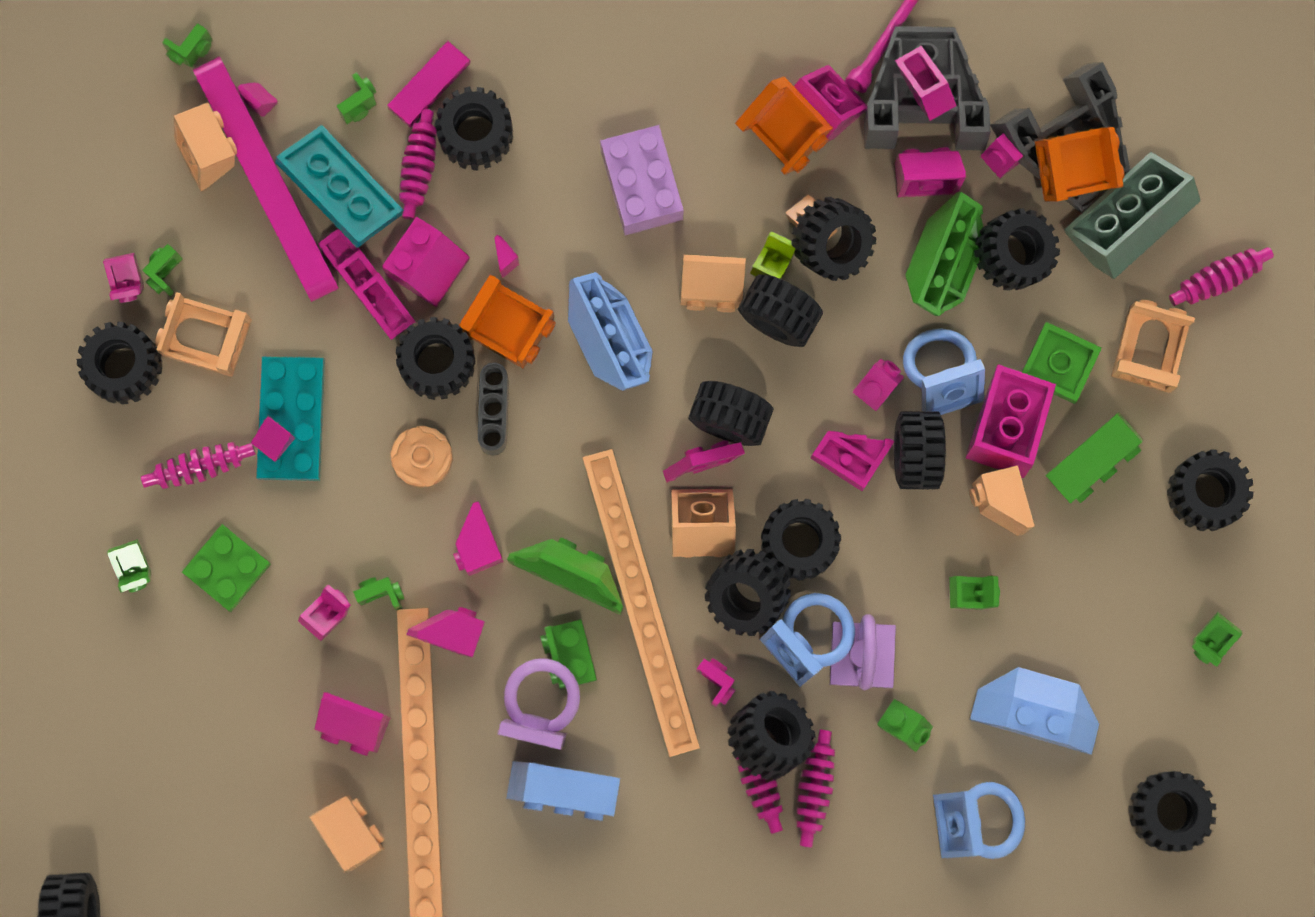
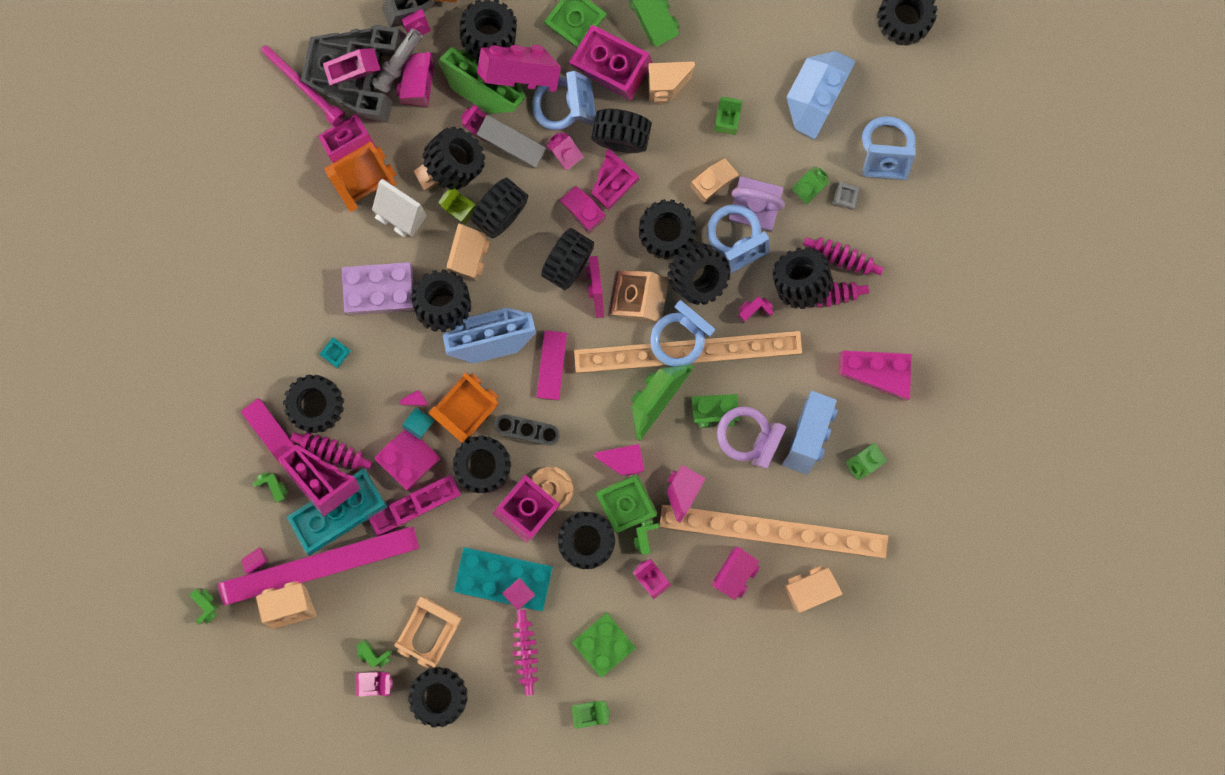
camera: 80 degrees left, 5 degrees up
(345, 493) = (569, 552): none -> black tyre
(373, 151) = (318, 480): none -> dark pink wedge
(387, 427) = (526, 509): none -> dark pink slope
(419, 558) = (626, 503): none -> bright green plate
(475, 266) = (417, 423): none -> teal tile
(538, 876) = (866, 461): none -> bright green bracket
(548, 144) = (335, 352): none -> teal tile
(586, 425) = (551, 365): none -> dark pink tile
(626, 276) = (441, 316): none -> black tyre
(666, 869) = (882, 371): none -> dark pink wedge
(680, 597) = (689, 320): none -> light blue tile
(749, 181) = (397, 209): none -> white slope
(804, 424) = (583, 209): none -> dark pink slope
(874, 310) = (511, 141): none -> light grey tile
(883, 591) = (713, 180): none -> light nougat slope
(890, 263) = (473, 119): none -> dark pink bracket
(901, 777) = (846, 195): none -> light grey tile
(936, 137) = (392, 68): none -> light grey pin
(976, 296) = (519, 65): none -> dark pink wedge

